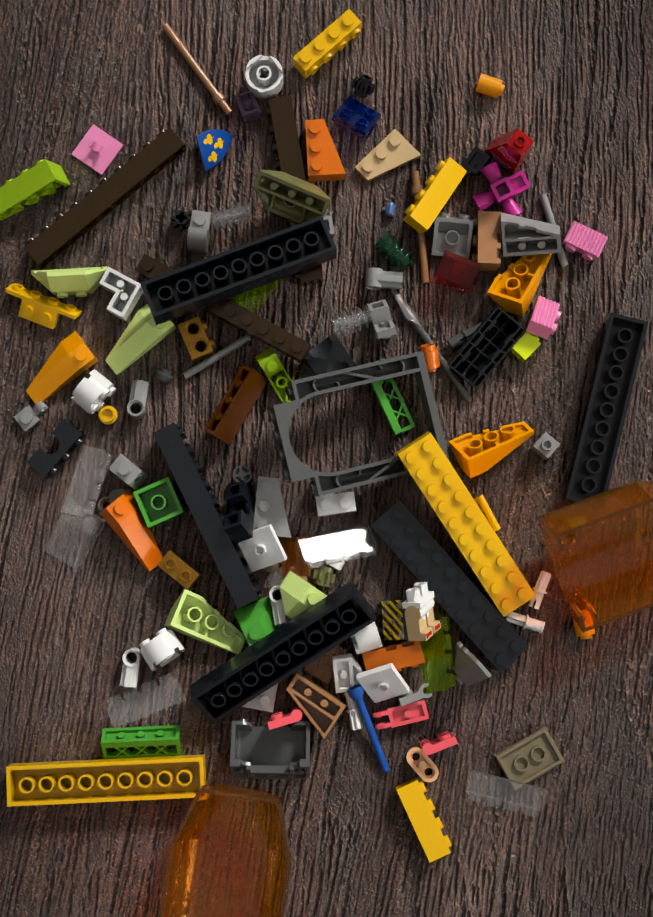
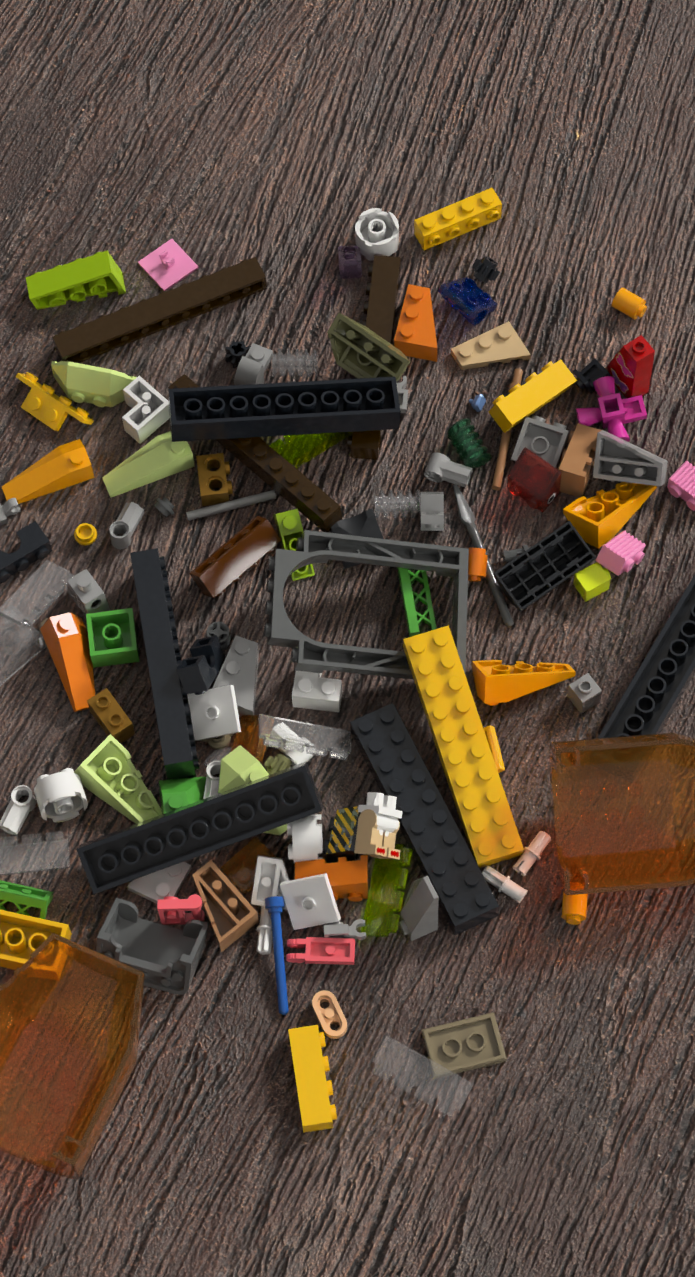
camera: 15 degrees right, 20 degrees down
(92, 392) = (77, 501): white brick -> none
(212, 146) = (297, 288): blue shield -> none
(218, 97) = (319, 243): medium nougat bar -> none
(442, 742) = (364, 988): coral plate -> none
(550, 219) = (660, 451): light grey bar -> none

